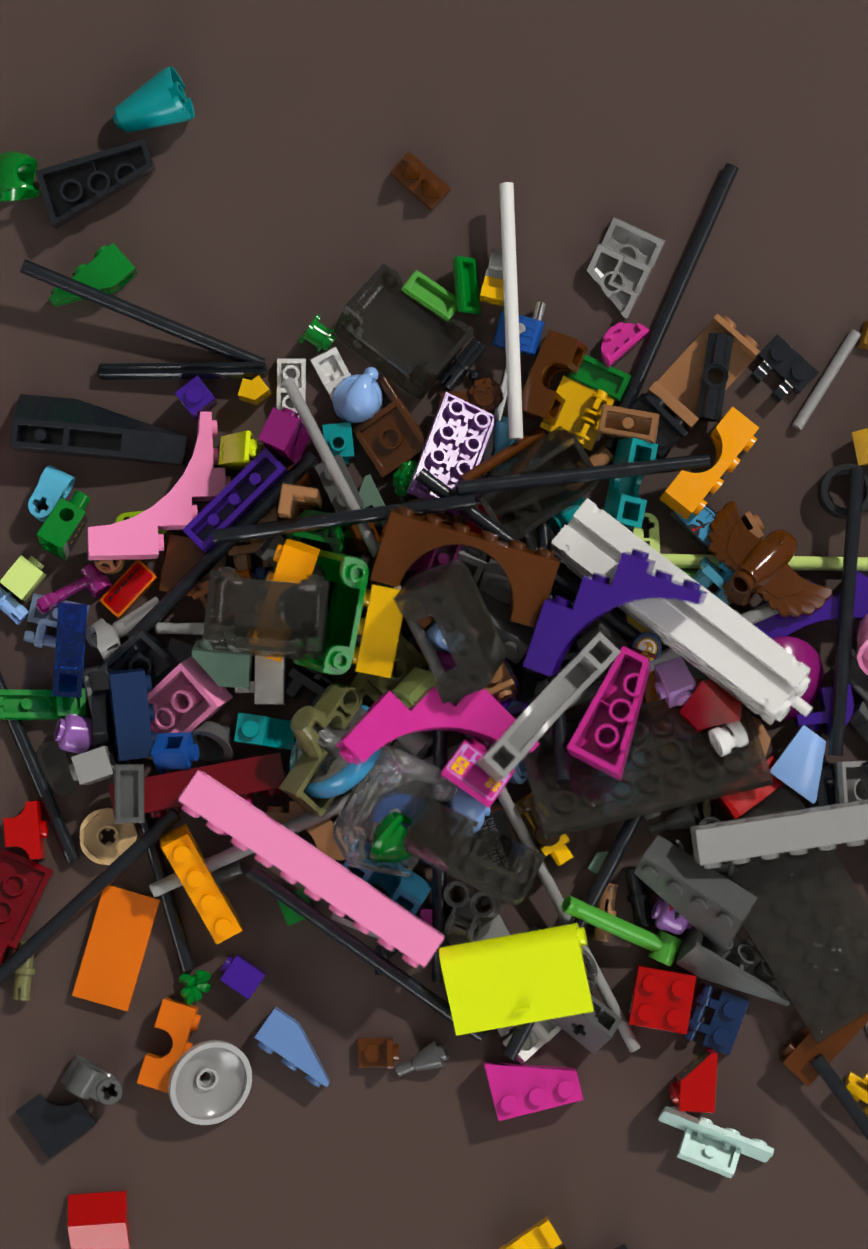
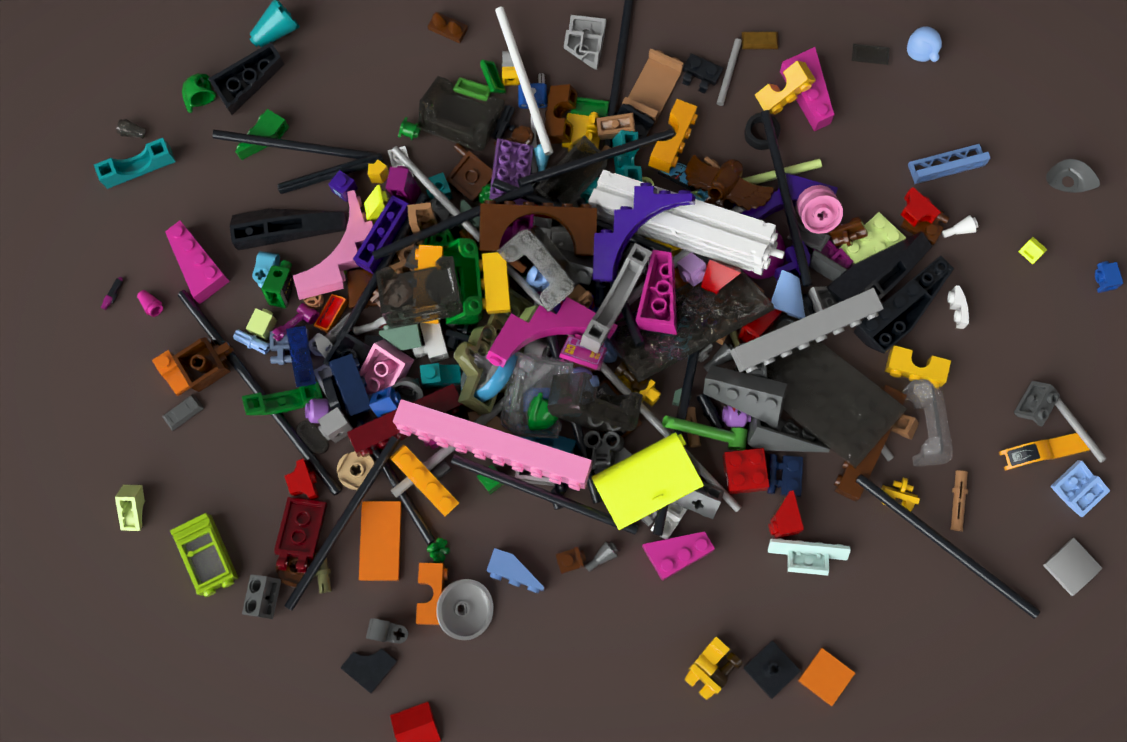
camera: 10 degrees left, 10 degrees down
(129, 793) = (361, 433): dark grey tile -> none
(242, 975) = (467, 534): dark purple brick -> none
(330, 369) = (427, 153): white slope -> none
(358, 396) = (443, 157): light blue piece -> none
(503, 455) = (548, 161): reddish brown piece -> none
(620, 340) = (596, 83): dark pink tile -> none
(647, 645) = (669, 247): tile -> none
(716, 359) = (659, 77): black piece -> none
(728, 737) = (738, 287): white wheel -> none

